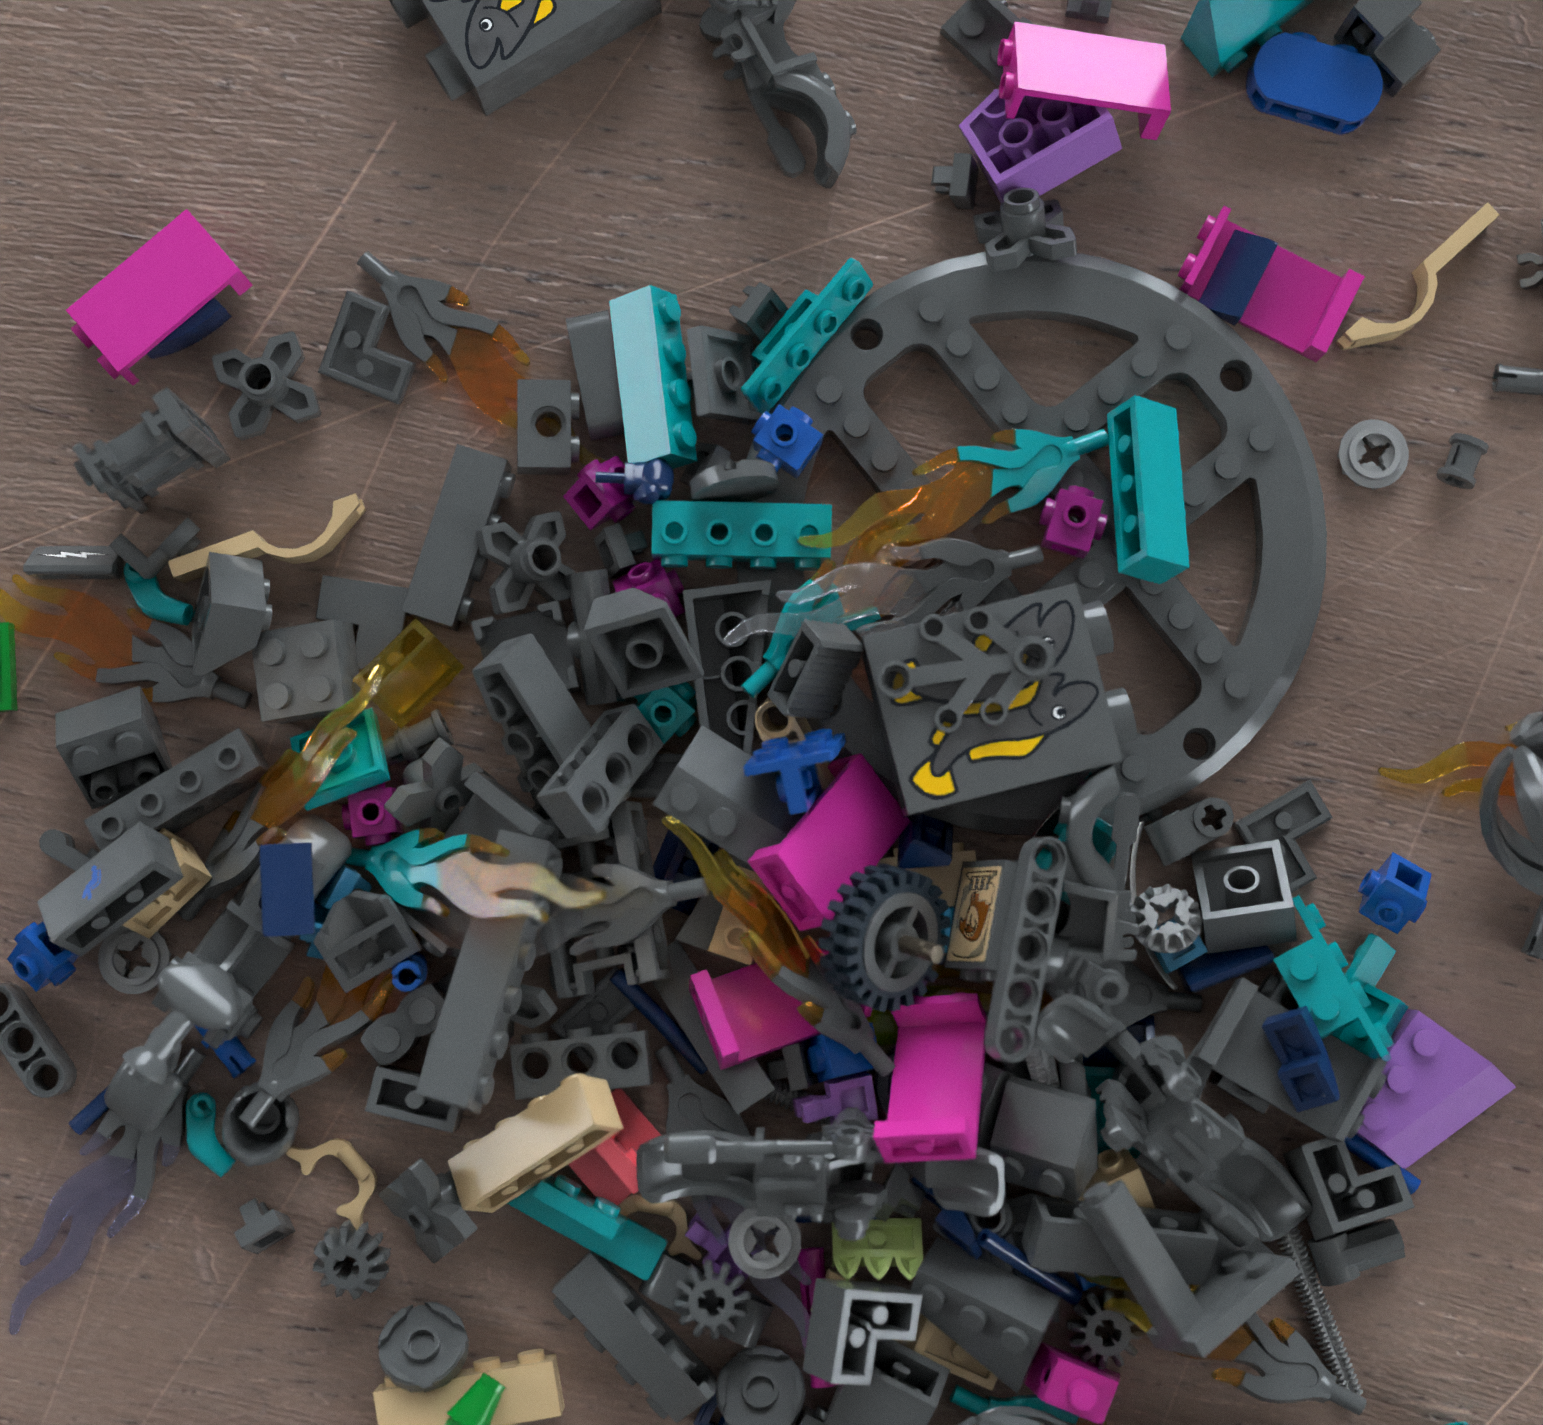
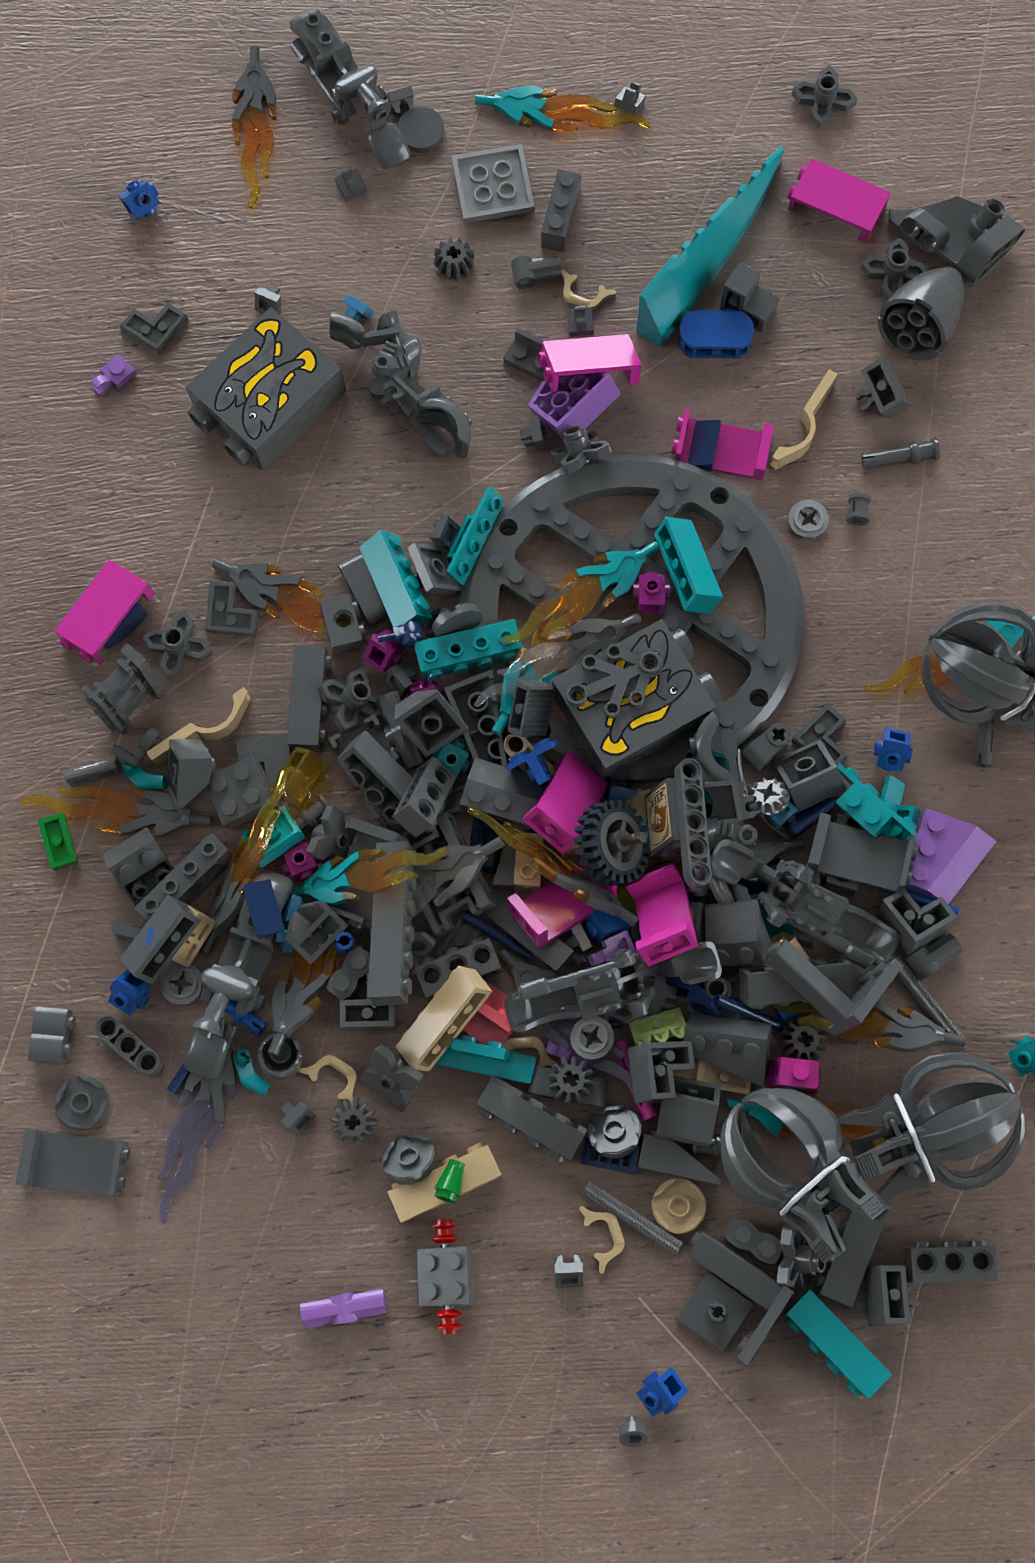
camera: 10 degrees left, 10 degrees down
(788, 455) = (480, 590): blue brick -> none
(1304, 1059) = (868, 848): dark blue slope -> none

